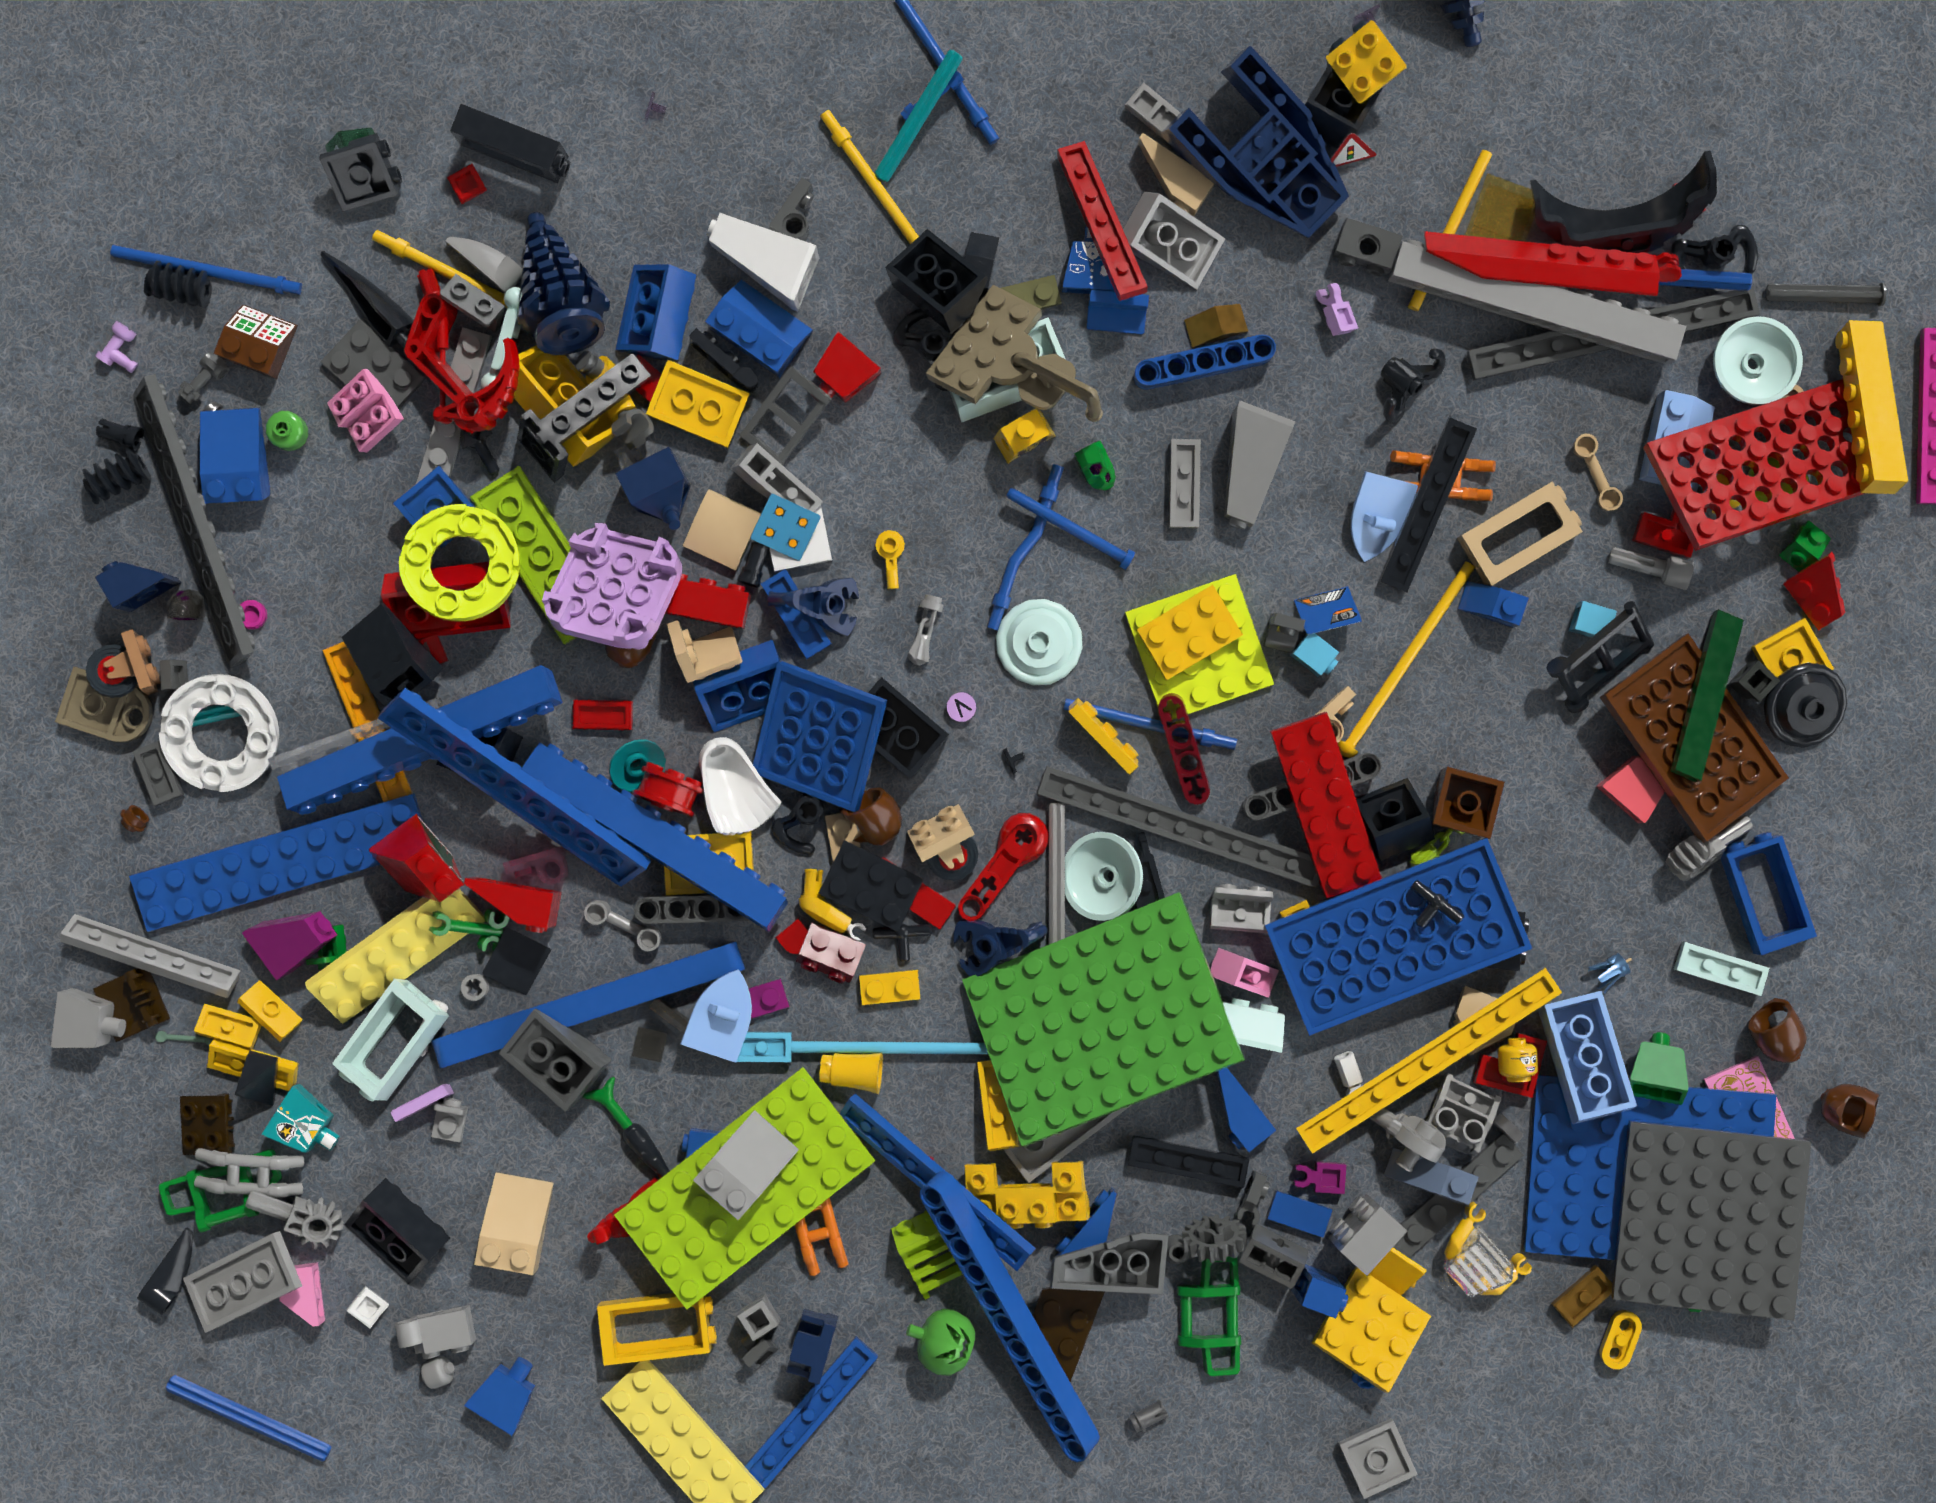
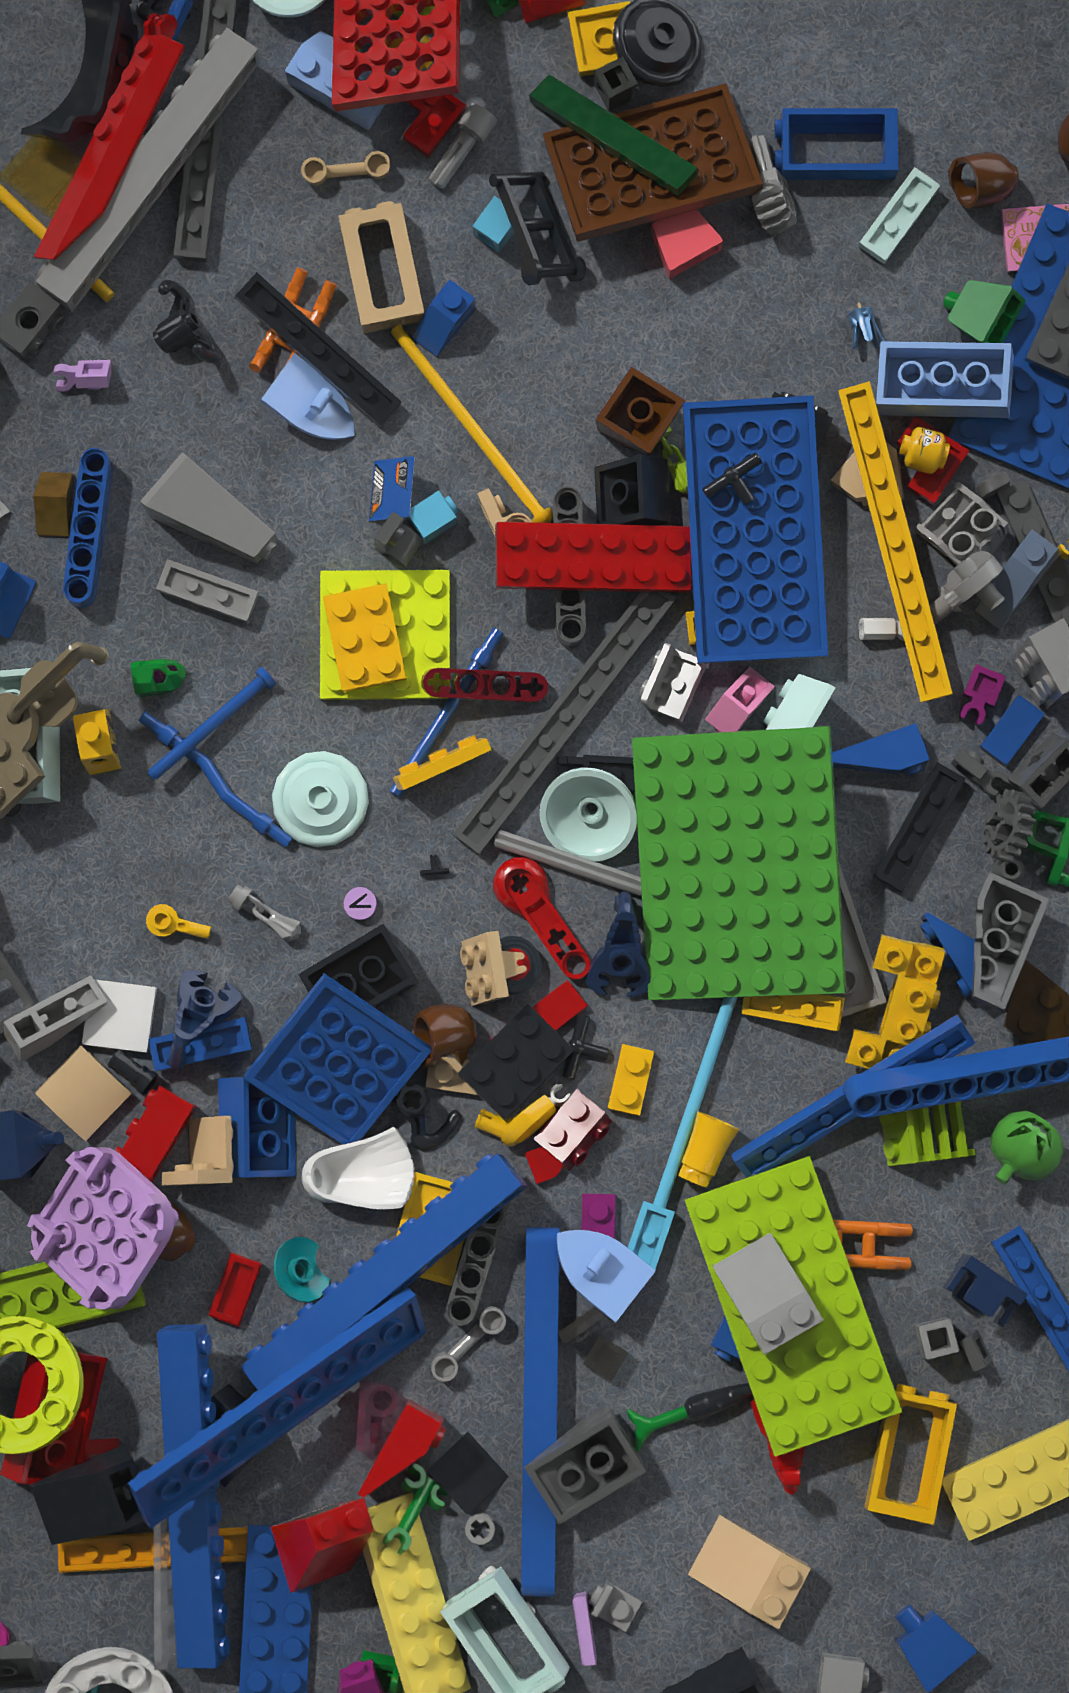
camera: 65 degrees left, 5 degrees down
(668, 789) = (339, 1243): red wheel -> none
(785, 527) = (103, 1023): dark azure sticker -> none

